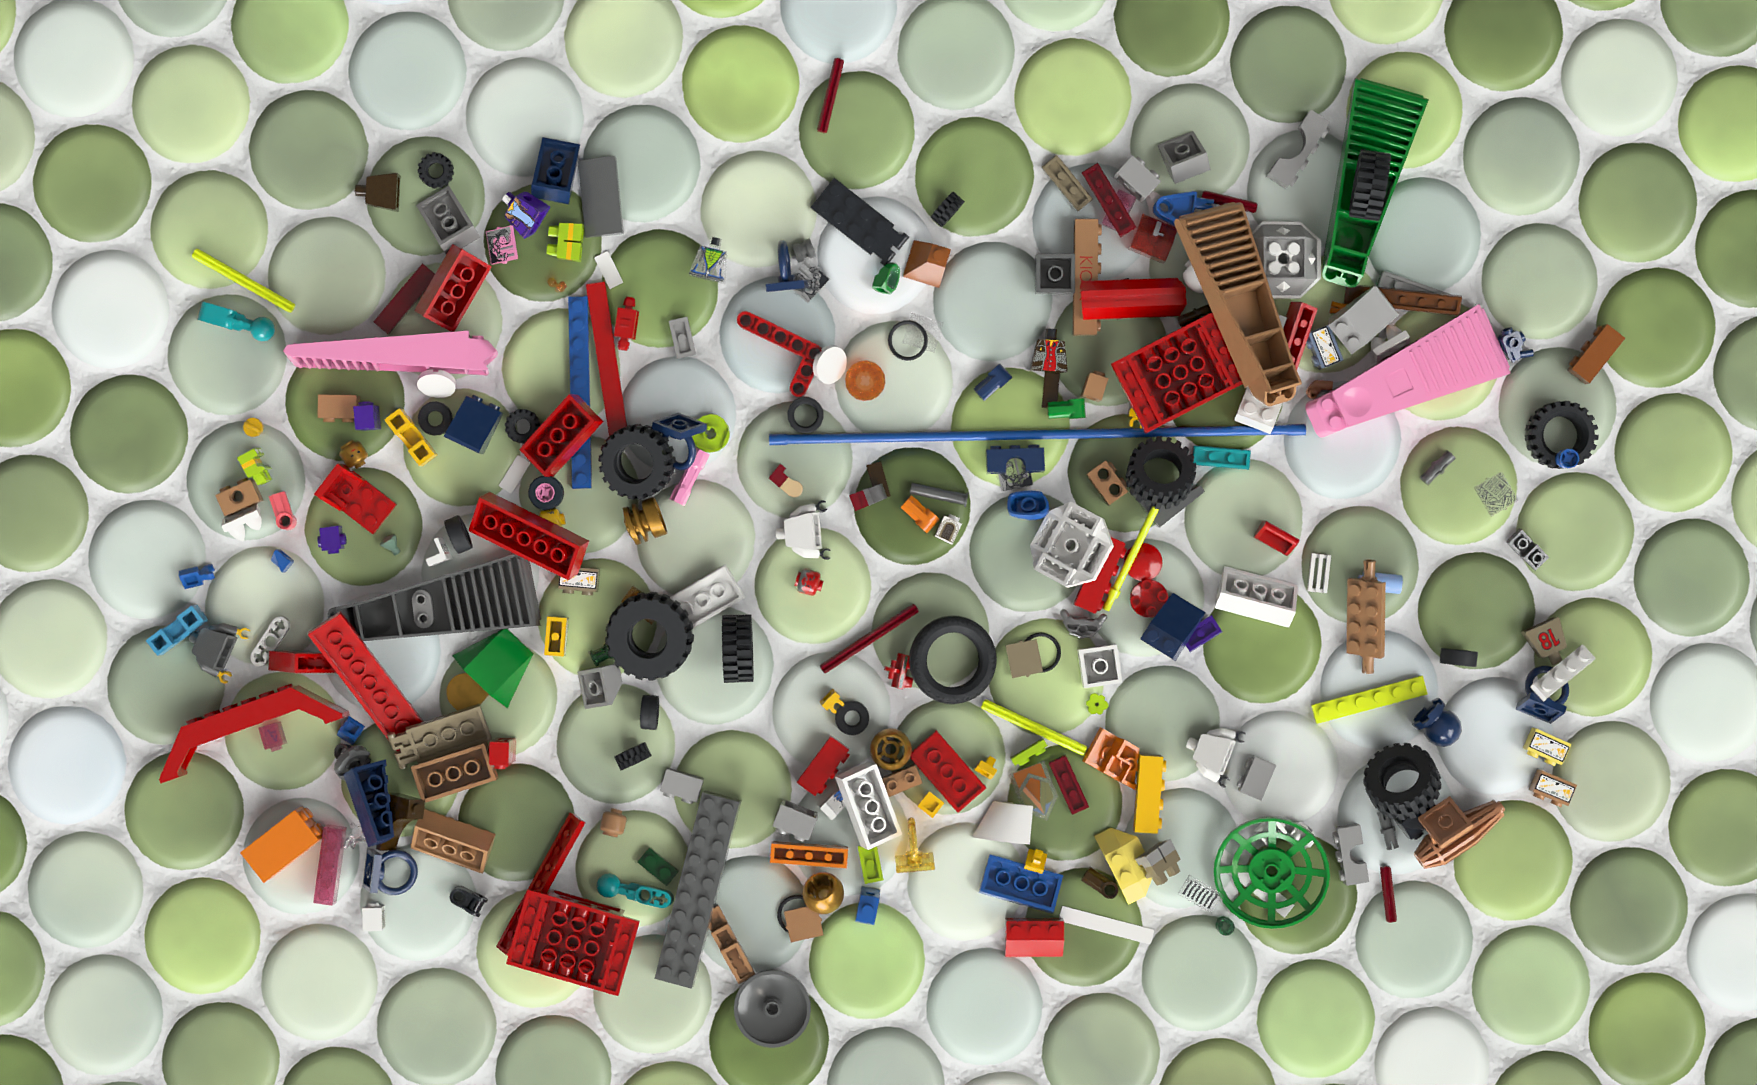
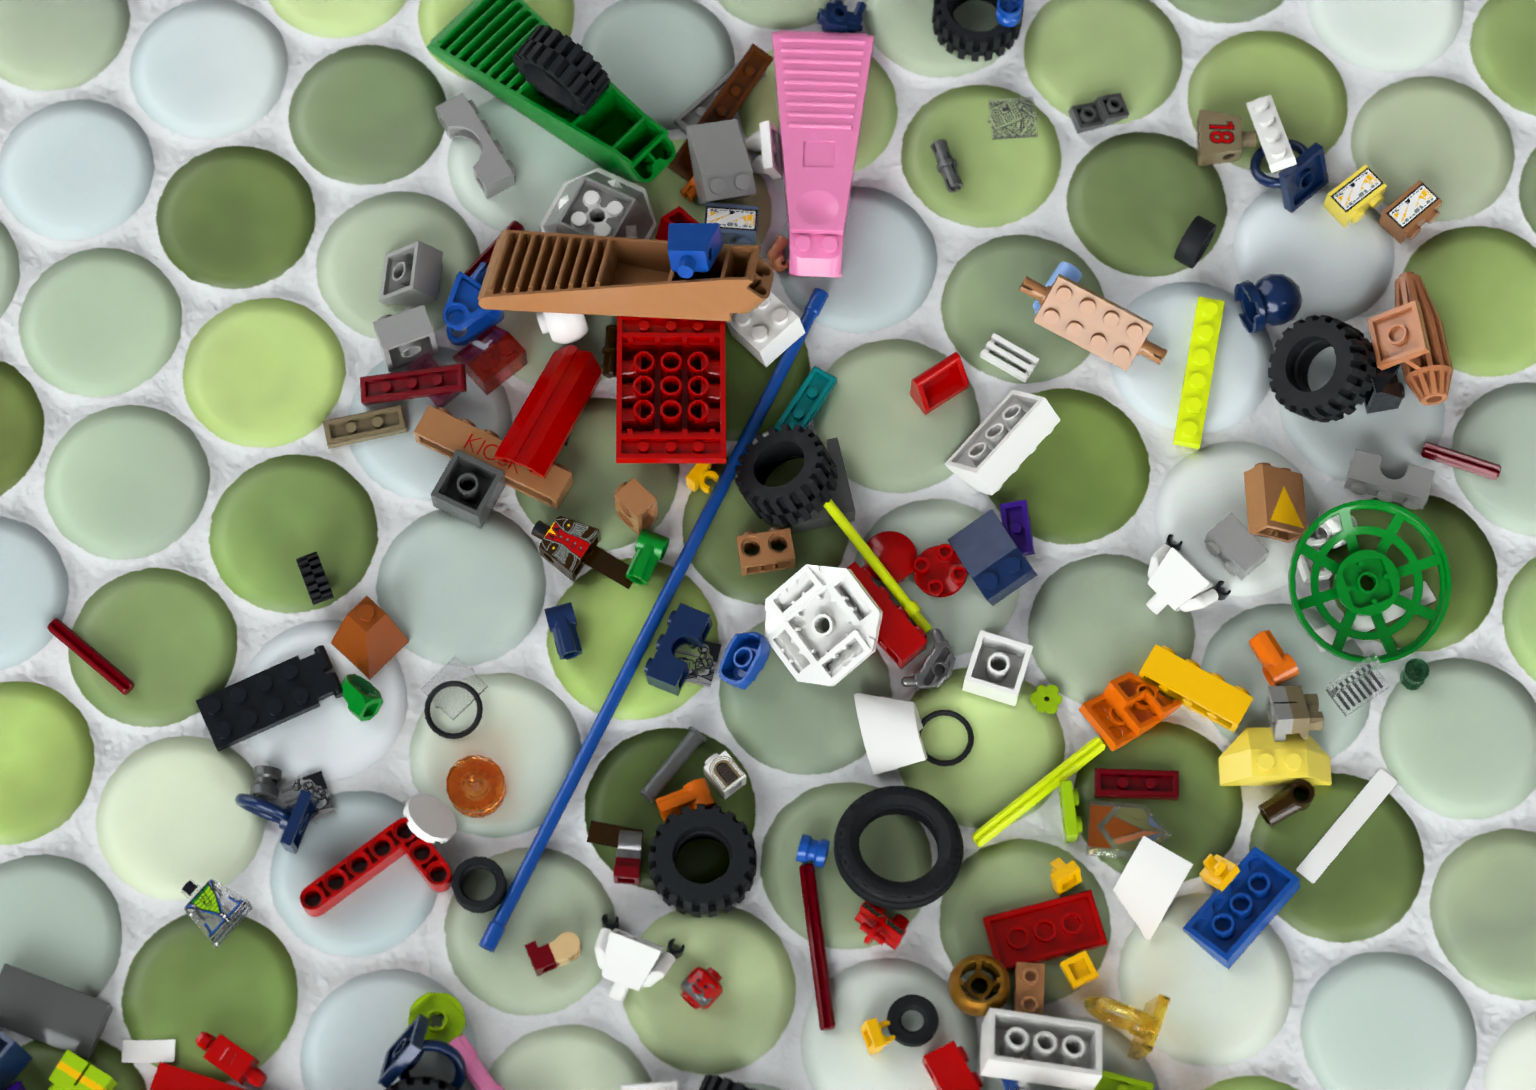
camera: 60 degrees left, 20 degrees down
(682, 337) = (290, 995): light grey plate -> none
(909, 556) = (695, 825): none -> black tyre
(926, 607) = (812, 850): none -> blue wheel
(1024, 658) = (945, 761): dark tan piece -> none
(1025, 618) = (889, 731): none -> white slope
(1034, 937) = (1323, 922): red slope -> none
(1189, 837) = (1275, 663): none -> orange piece
(1276, 341) = (693, 247): none -> blue torso
(1297, 790) = (1275, 502): none -> medium nougat brick
(1388, 831) = (1377, 424): dark grey pin -> none

